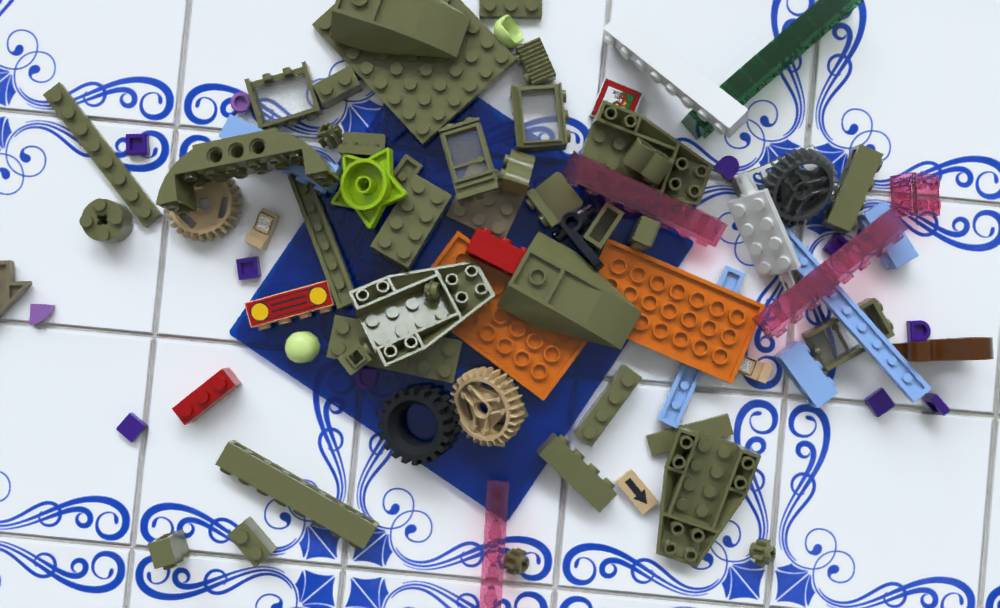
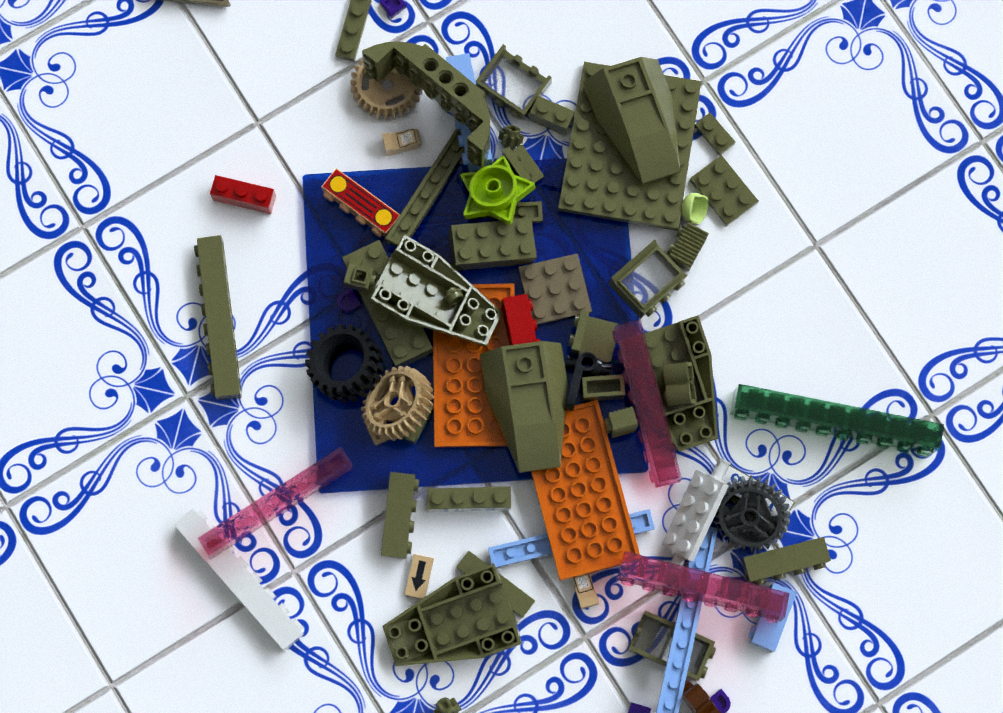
camera: 50 degrees right, 10 degrees down
(40, 313) = (211, 28): medium lavender tile -> none
(95, 220) = (312, 16): olive brick -> none
(131, 427) = (175, 158): dark purple tile -> none
(168, 549) = (106, 253): olive piece -> none
(241, 103) = (483, 55): medium lavender tile -> none
(248, 268) = (363, 153): dark purple tile -> none
(252, 541) = (157, 310): olive piece -> none
(302, 347) = (334, 236): yellowish green hair -> none
(469, 159) = (574, 250): olive door -> none
(516, 561) = (293, 522): olive gear -> none
(517, 172) = (592, 293): olive brick -> none
(618, 94) = (714, 328): tile -> none
(676, 75) = (759, 352): white brick -> none
(727, 167) = (727, 451): dark purple tile -> none
(806, 373) = (615, 637): light blue brick -> none
(915, 194) = (823, 616): clear pink bracket -> none

